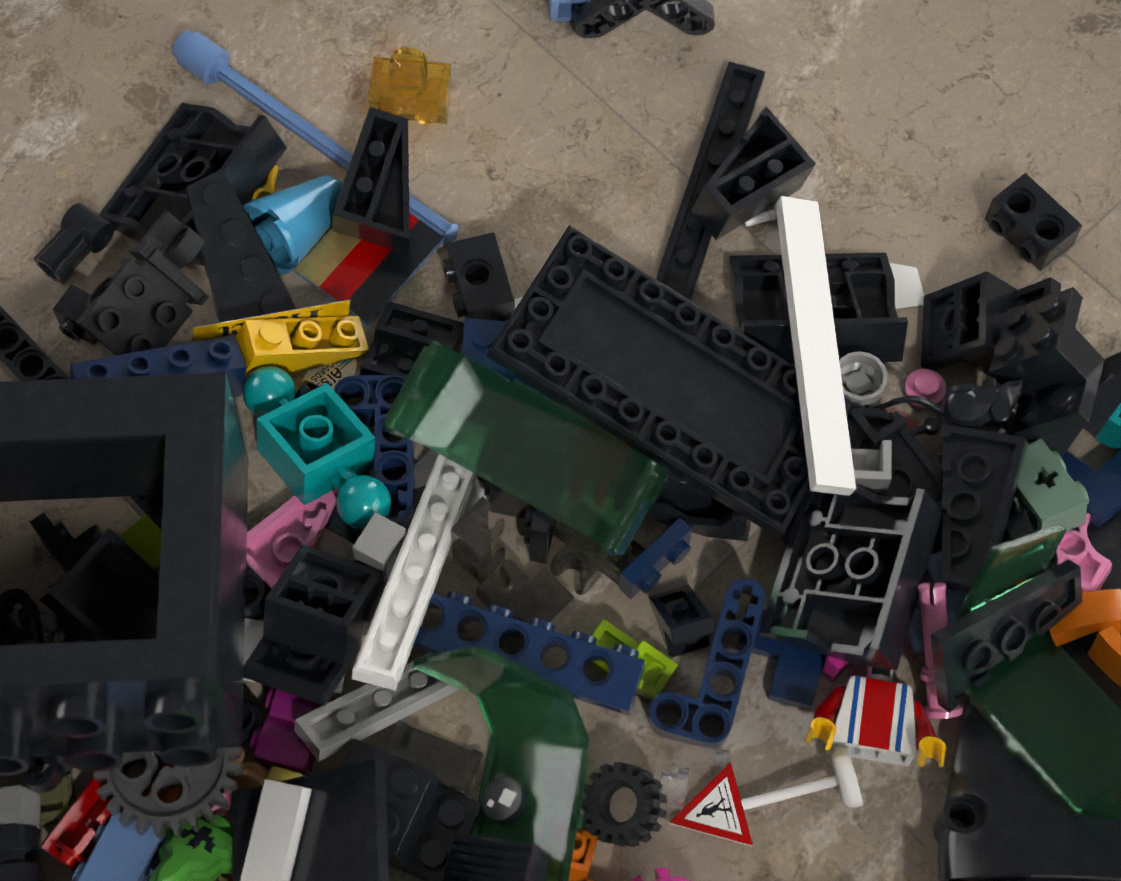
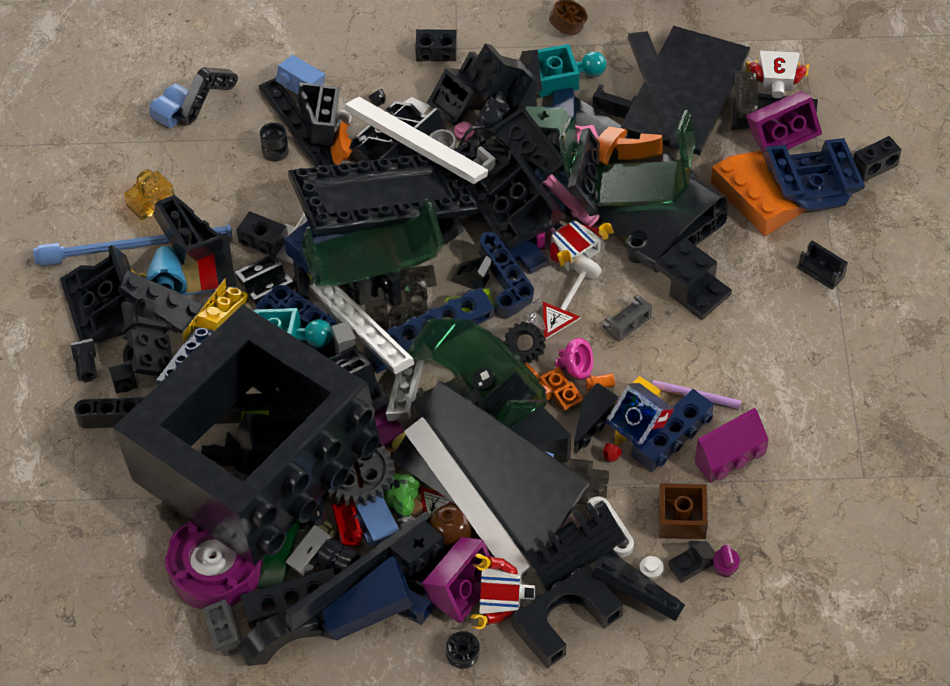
camera: 45 degrees left, 10 degrees down
(646, 568) = (442, 271): dark blue plate -> none
(647, 162) = (274, 141): none -> black wheel
(728, 249) = (341, 143): none -> orange slope
(791, 94) = (296, 70): none -> medium blue brick
(868, 224) = (378, 97): none -> black hinge

